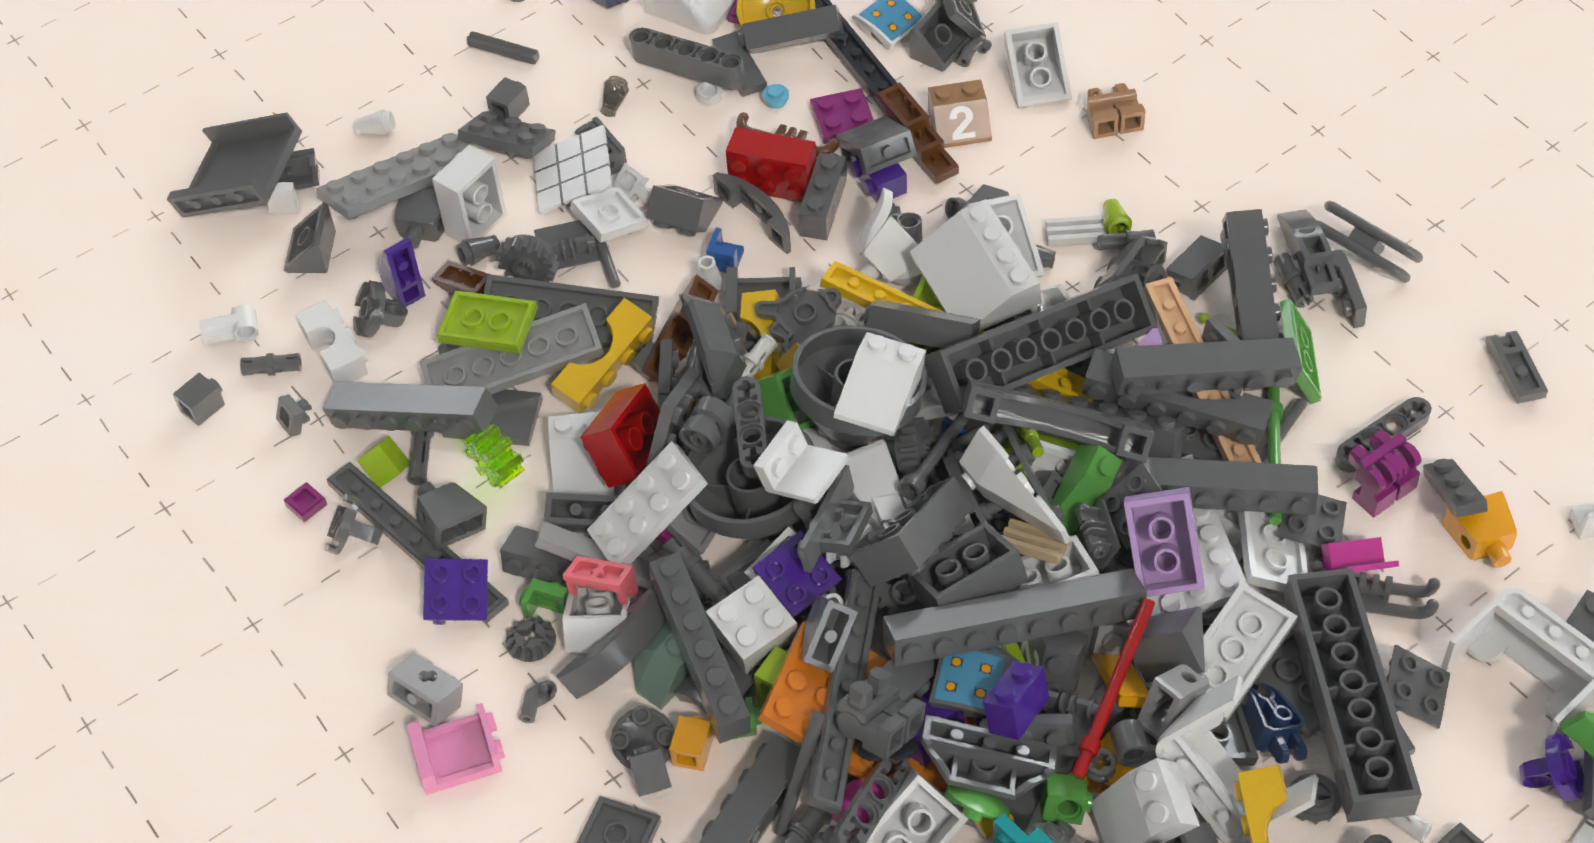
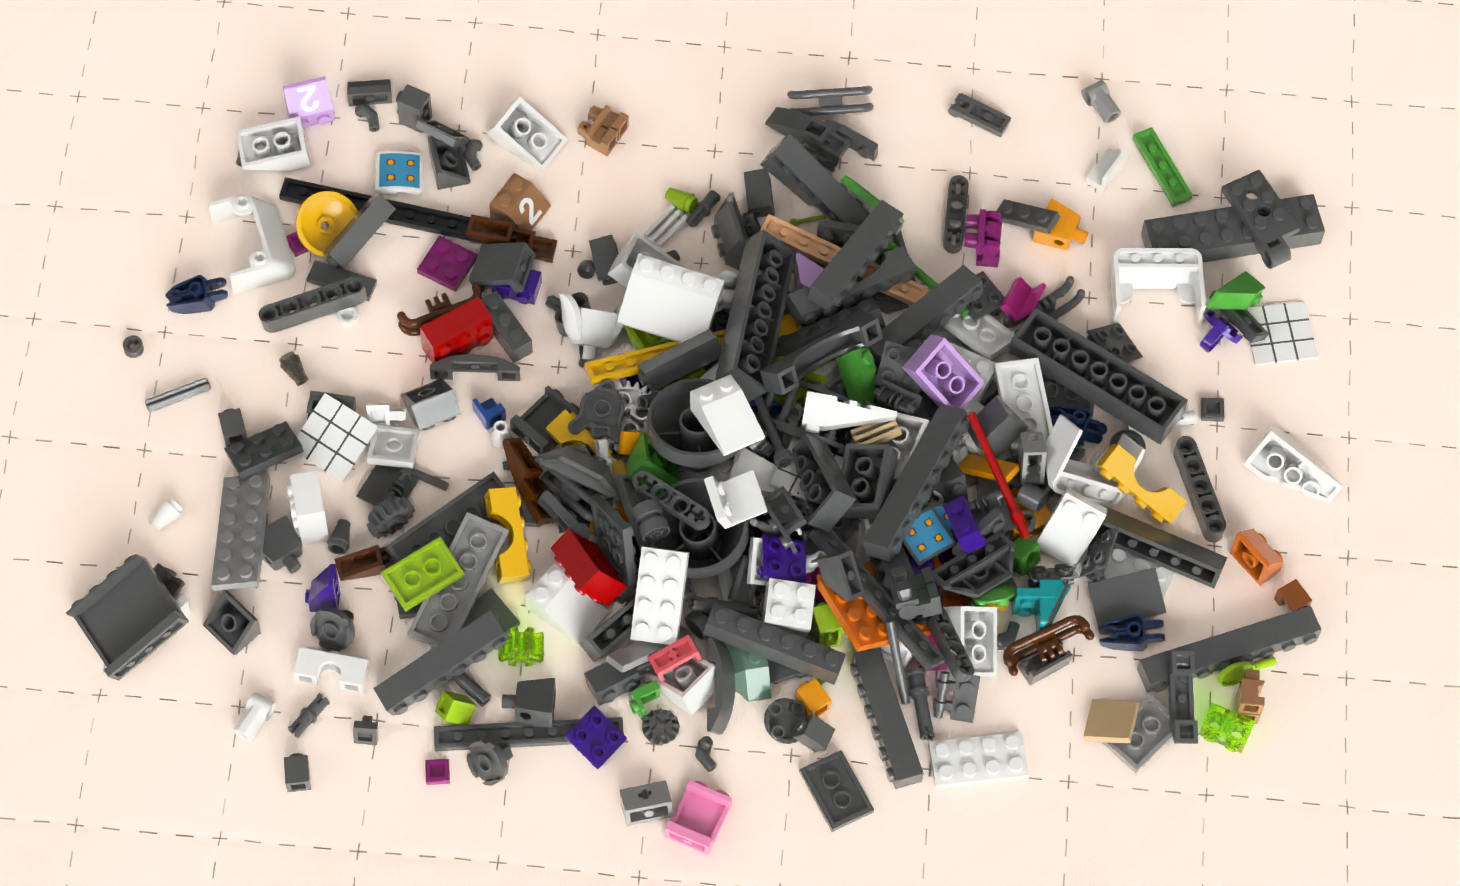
camera: 55 degrees left, 10 degrees up
(775, 96) = (391, 283): medium azure plate -> none

